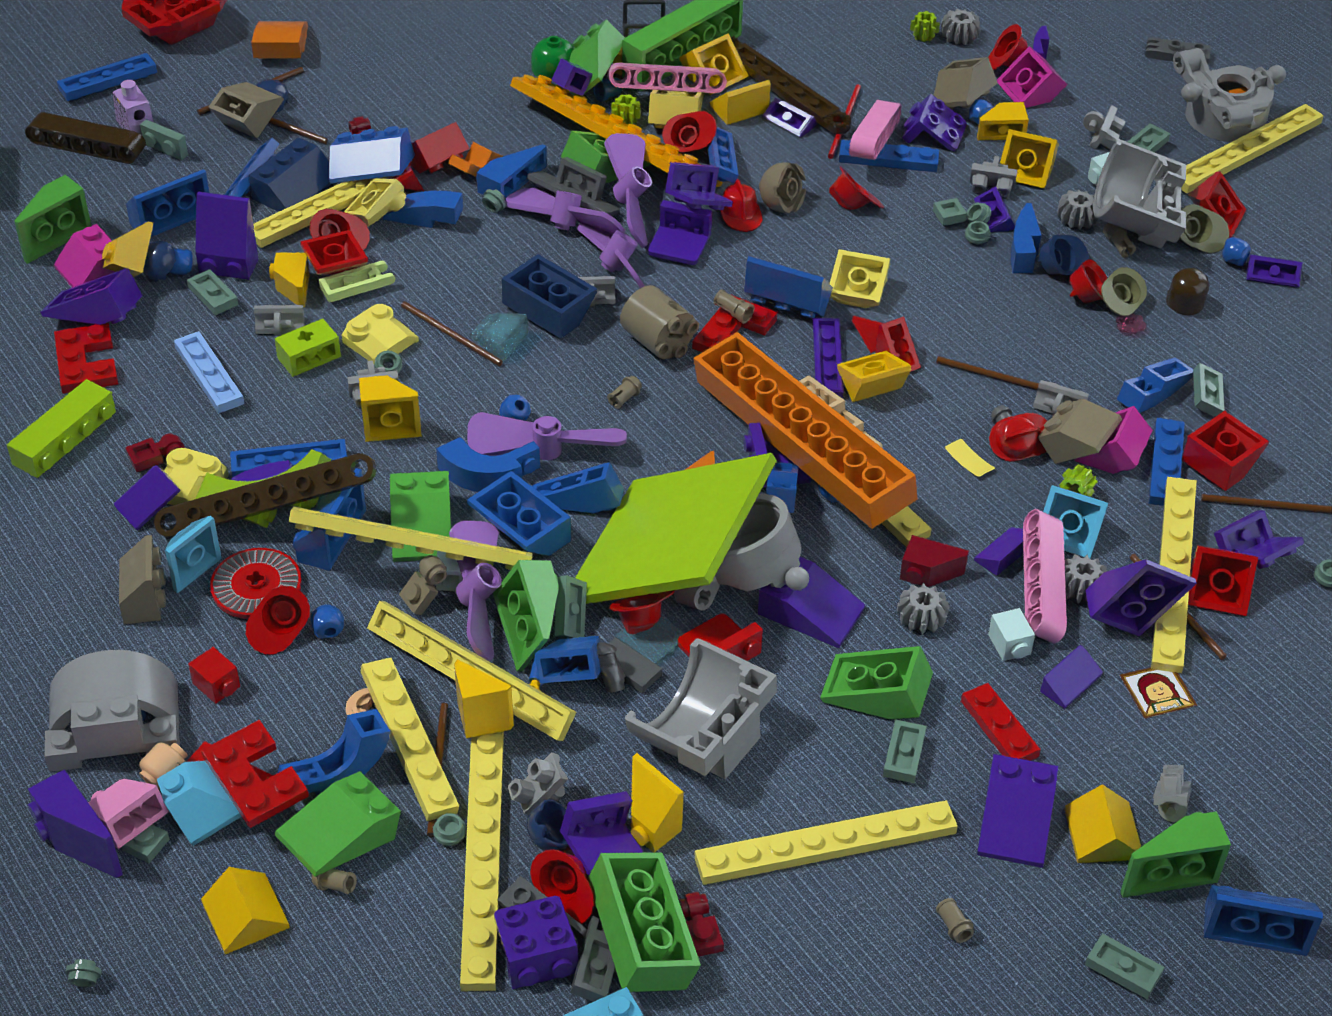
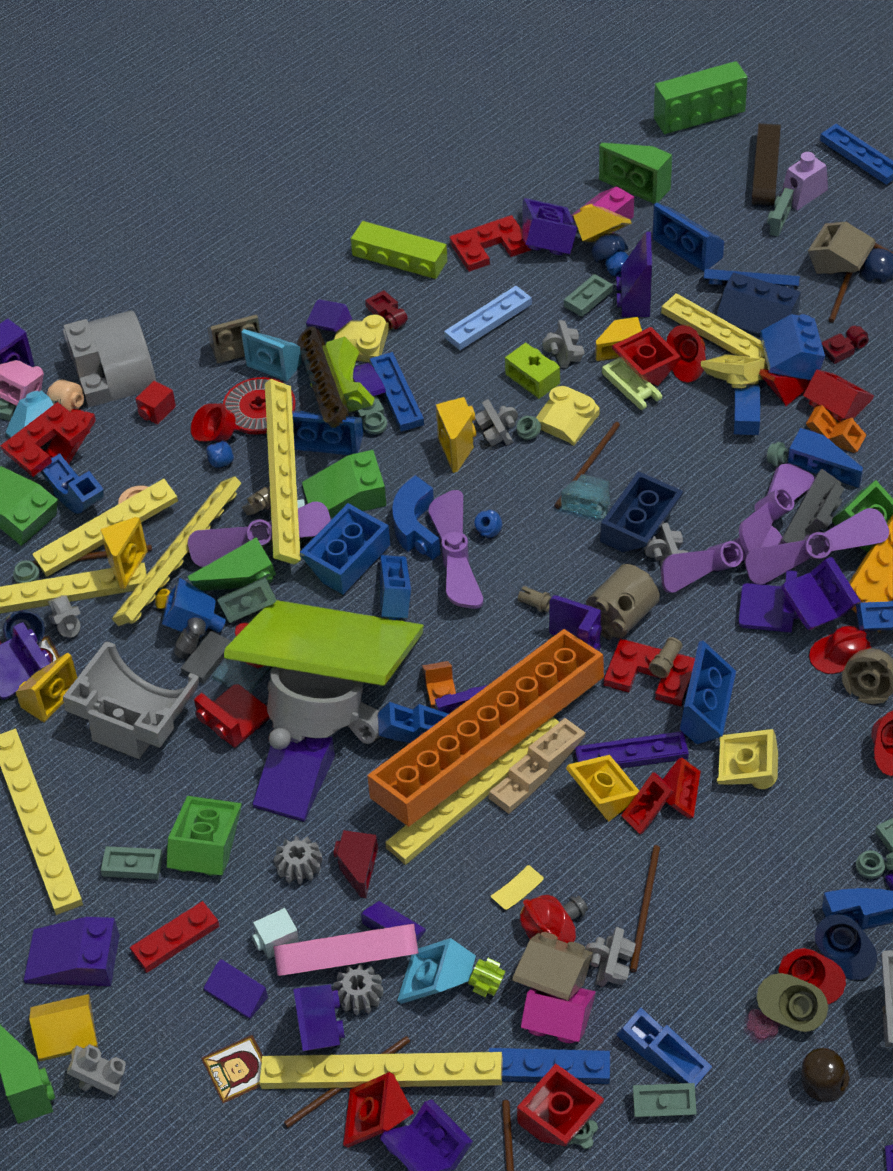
camera: 85 degrees right, 5 degrees up
(677, 353) = (576, 618): none -> dark purple bracket

